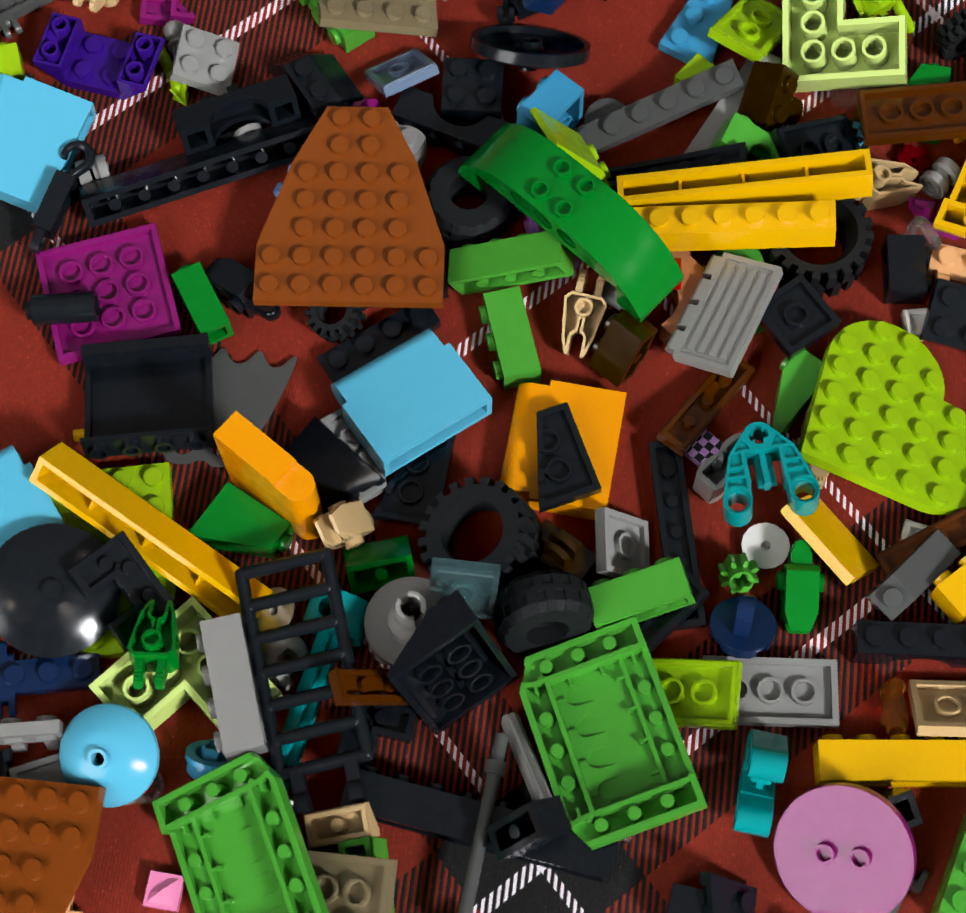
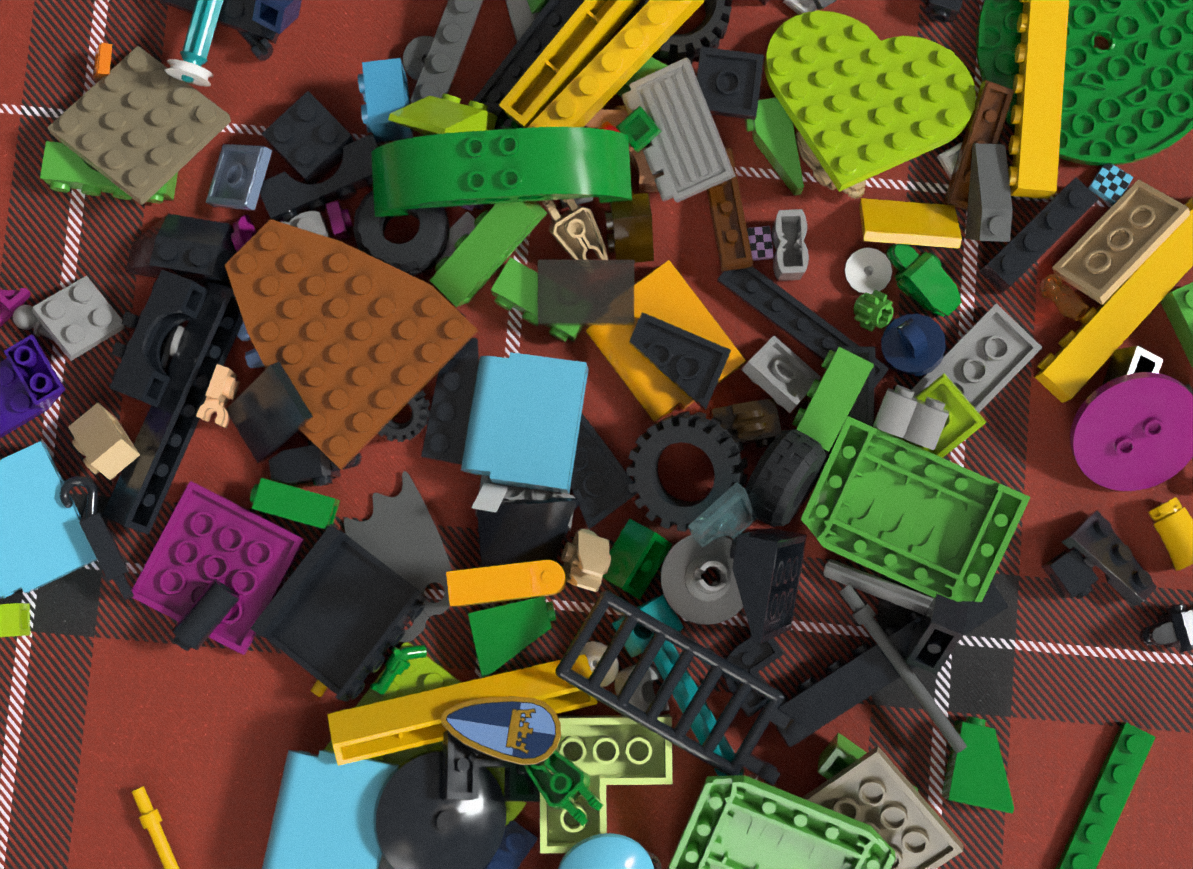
camera: 50 degrees left, 15 degrees up
(100, 170) = (103, 485): light grey wheel -> none
(130, 143) = (102, 442): none -> tan brick
(144, 466) = (396, 665): none -> green piece
(161, 569) = (506, 727): none -> shield
(178, 89) = (86, 360): lime piece -> none
(203, 758) = (670, 806): dark azure piece -> none
(232, 686) = (643, 751): light grey brick -> none
(234, 185) = (220, 390): none -> light nougat plate
(251, 225) = (269, 412): none -> black tile
(328, 420) = (490, 497): none -> white sticker
(340, 824) = (805, 757): tan slope -> none
(364, 688) = (731, 654): reddish brown tile -> none
(434, 158) = (340, 220): none -> magenta plate
(530, 46) = (317, 61): black dish -> none
(544, 355) = (585, 292): none -> clear smoke tile
(682, 667) = (911, 418): none -> light grey brick
(698, 285) = (639, 128): none -> green tile
(762, 767) = (1031, 435): teal connector -> none
(793, 470) = (846, 203): teal connector -> none

